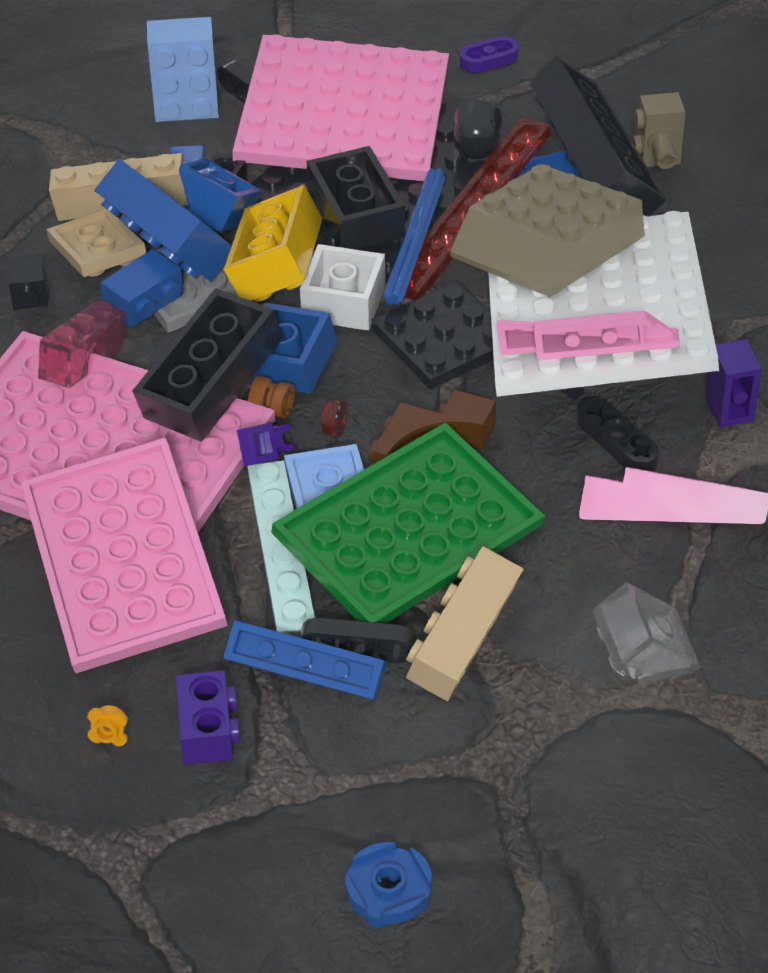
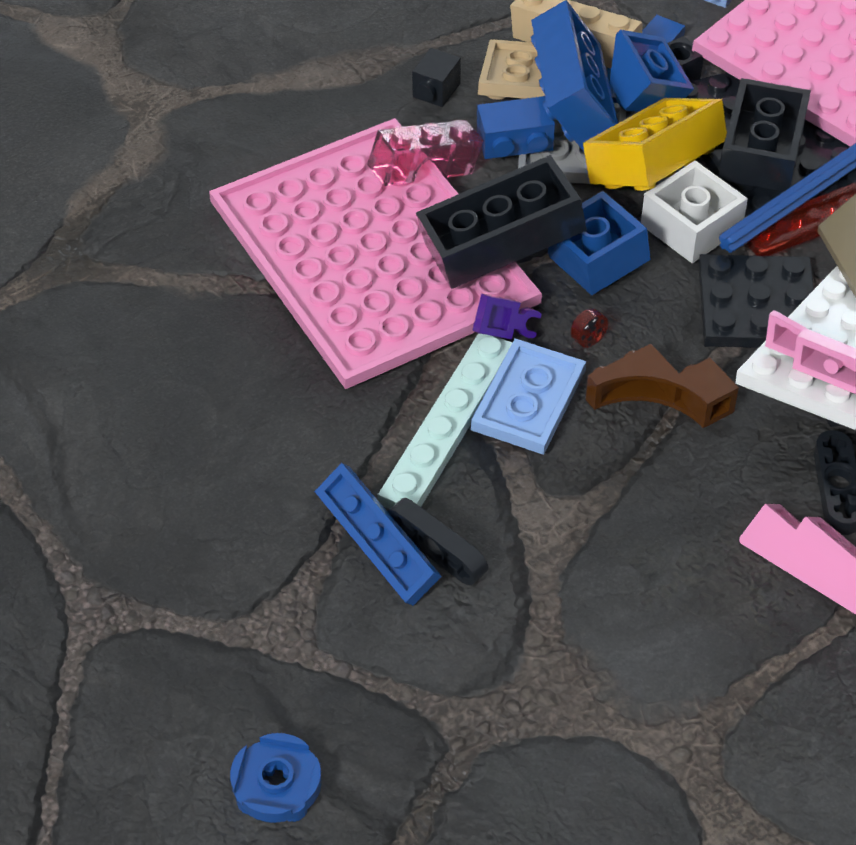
camera: 35 degrees right, 5 degrees up
(108, 717) = (175, 495): light orange plate -> none
(122, 555) = (303, 354): bright pink plate -> none
(204, 717) = (249, 531): dark purple brick -> none
(272, 395) = (551, 281): dark orange wheel -> none
(406, 525) = (566, 462): green plate -> none
(463, 624) = (537, 579): tan brick -> none
(644, 636) = (696, 689): clear slope -> none

